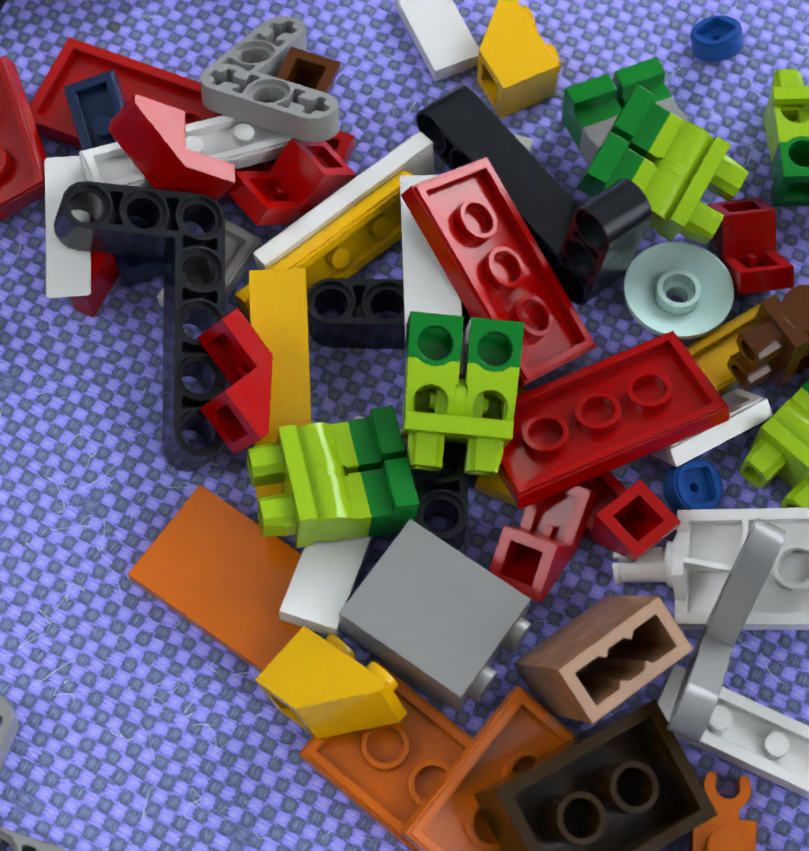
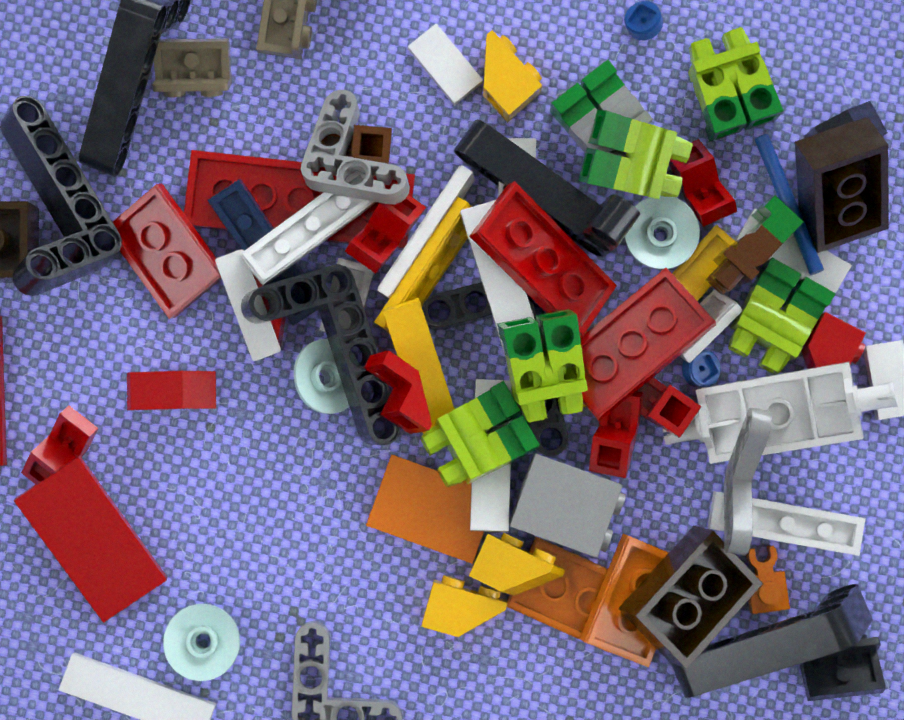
camera: 20 degrees left, 20 degrees up
(138, 328) = (325, 397): none -> light aqua dish
(156, 144) = (296, 242): red slope -> none
(224, 734) = (458, 609): none -> yellow slope
(603, 656) = (674, 508): medium nougat brick -> none

